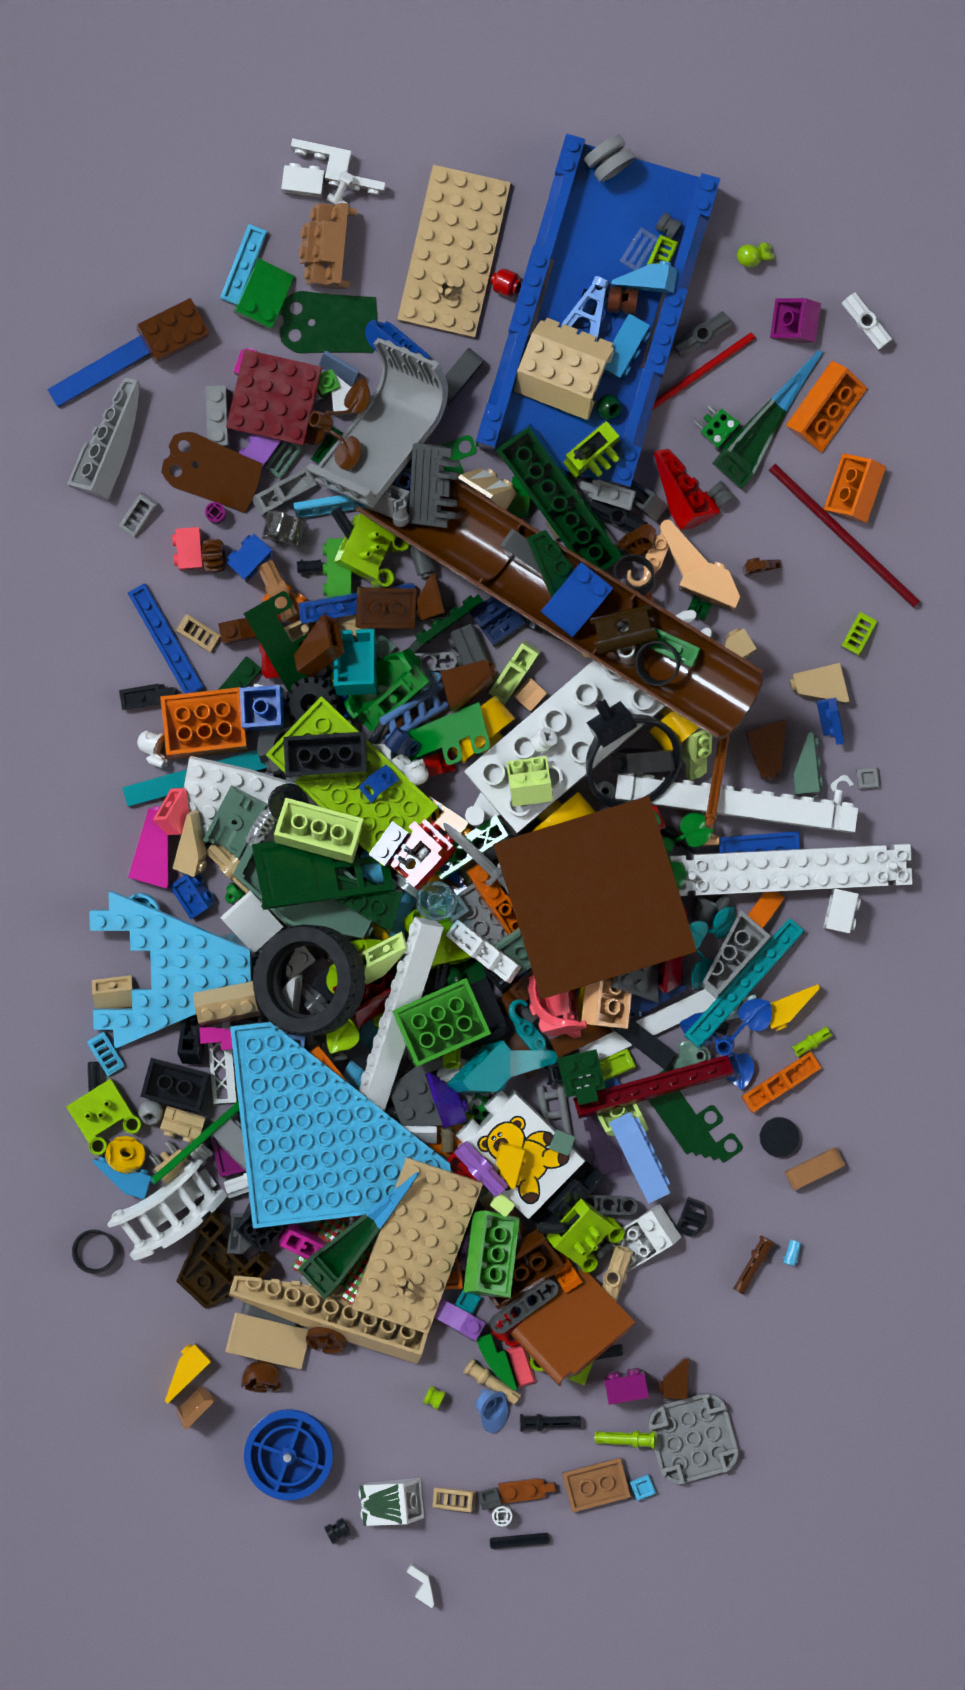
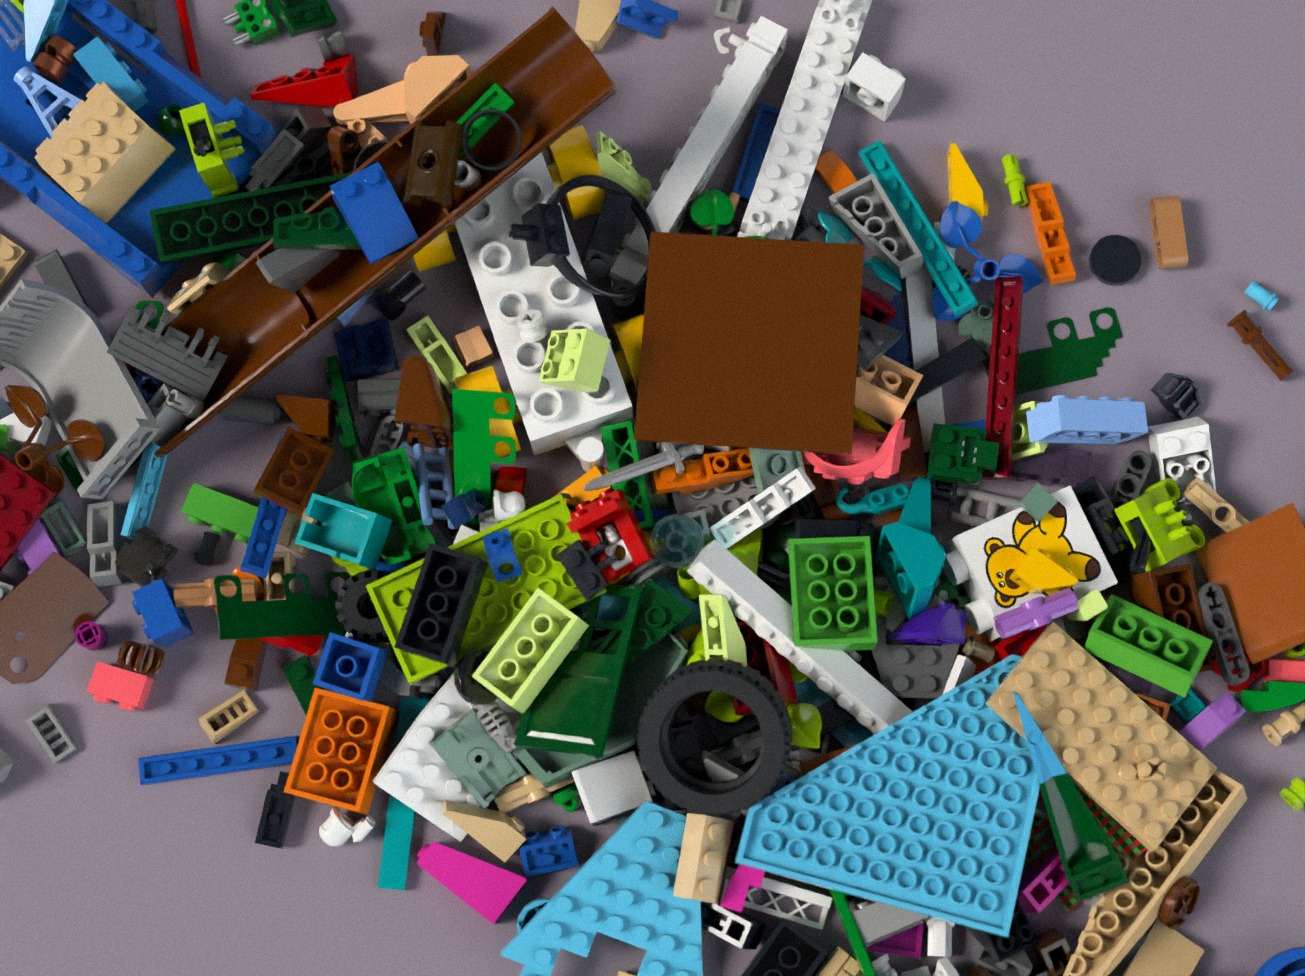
camera: 65 degrees left, 10 degrees down
(173, 812) = (434, 832): coral slope -> none
(319, 647) = (306, 566): reddish brown slope -> none
(365, 547) = (210, 465): lime piece -> none
(567, 1276) = (1204, 567): orange slope -> none
(616, 1064) = (958, 409): lime tile -> none
(719, 764) = (653, 154): dark orange piece -> none
(767, 748) = (649, 101): reddish brown slope -> none
(805, 773) = (691, 68): sand green slope -> none

